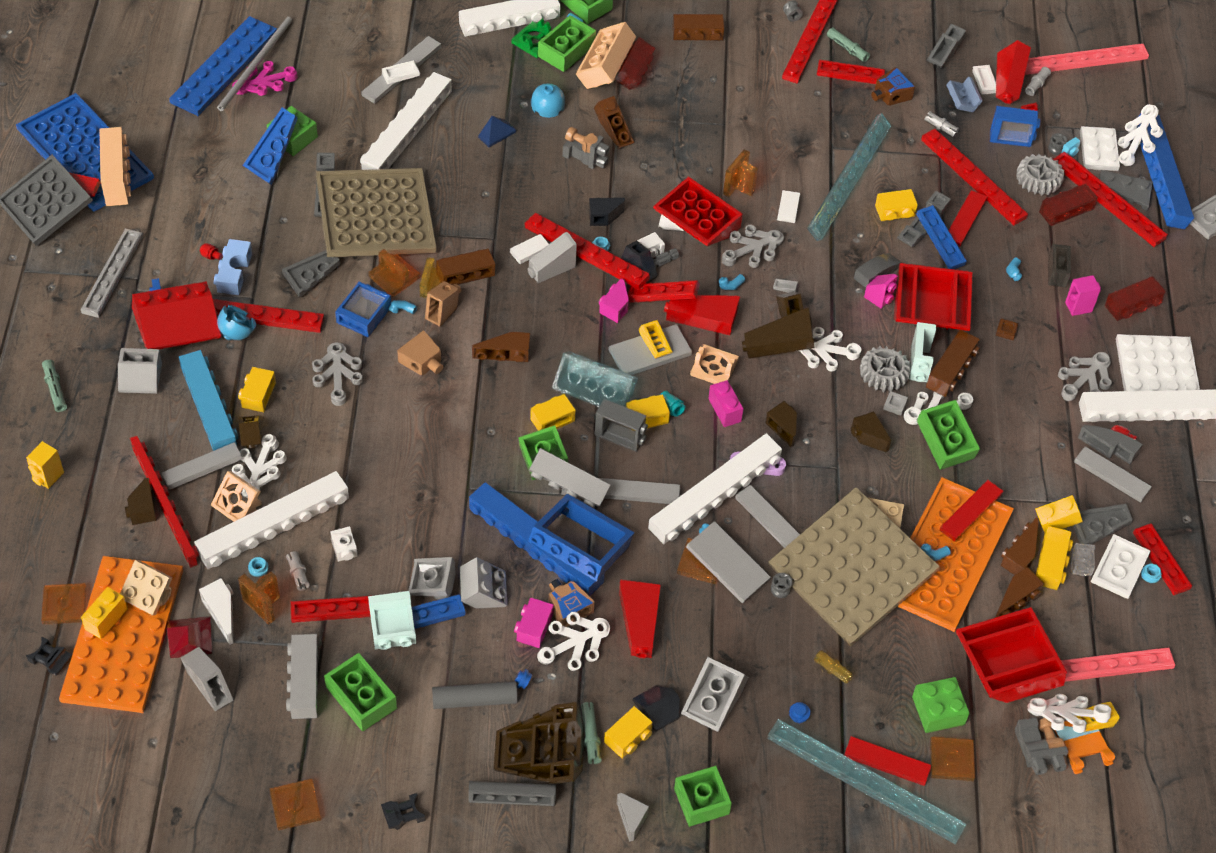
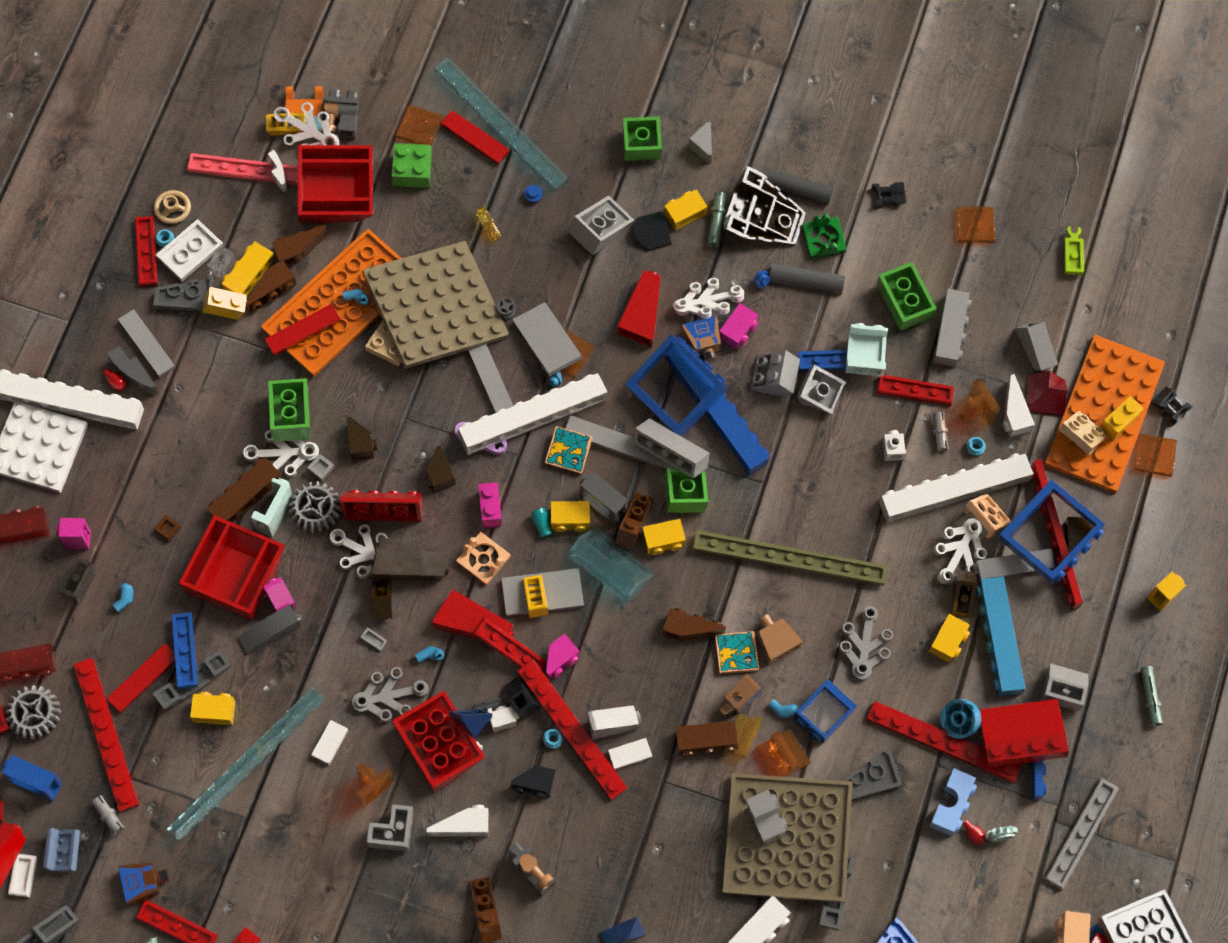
camera: 165 degrees left, 15 degrees up
(174, 521) = (1072, 558): none -> blue window
(175, 795) = (1073, 253): none -> lime plate
(181, 246) = (1001, 834): none -> light aqua gear
(399, 209) = (764, 814): none -> light grey brick
(425, 424) = (790, 558): none -> olive plate
(455, 341) = (736, 652): none -> tile
(470, 757) = (825, 249): none -> green piece
(584, 423) = (633, 521): none -> reddish brown slope
(653, 171) = (465, 823): none -> white slope
(669, 469) = (568, 450): none -> tile
(676, 228) = (471, 720): none -> dark blue slope
(709, 149) = (393, 835): none -> light grey brick
(825, 371) = (382, 506): none -> red slope
(1070, 654) = (277, 173): none -> white slope
(1099, 361) = (115, 454): light grey plant -> none
(1163, 605) = (169, 199): none -> tan piece

